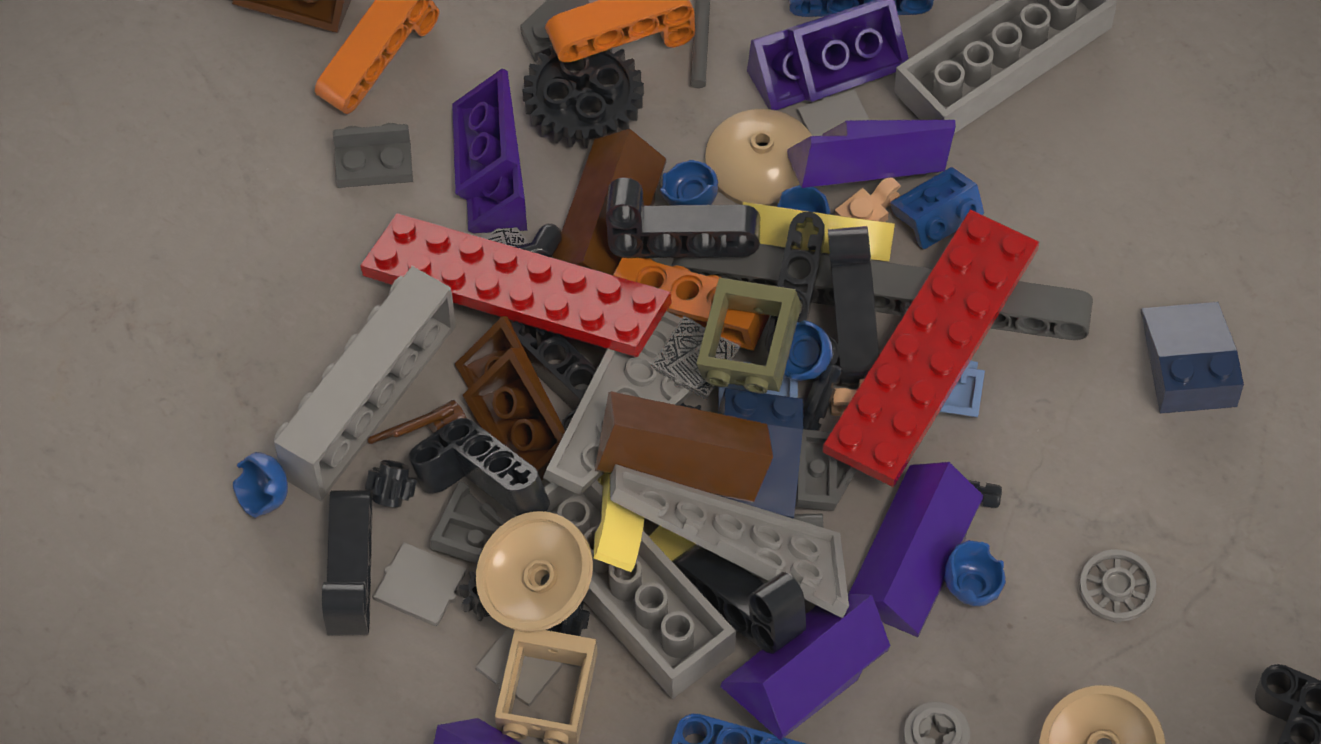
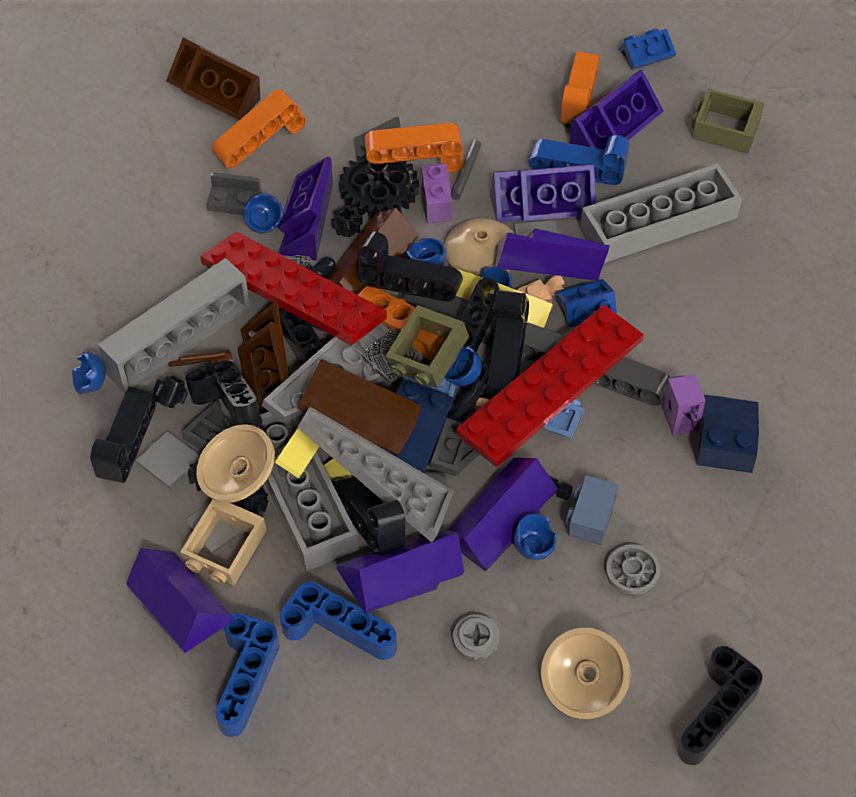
camera: 15 degrees right, 5 degrees down
(430, 177) = (262, 213): none -> blue hair
(556, 161) = (347, 221): none -> black gear
(673, 87) = (436, 193): none -> medium lavender brick
(1041, 515) = (593, 509): none -> sand blue brick
(1122, 332) = (683, 404): none -> medium lavender brick

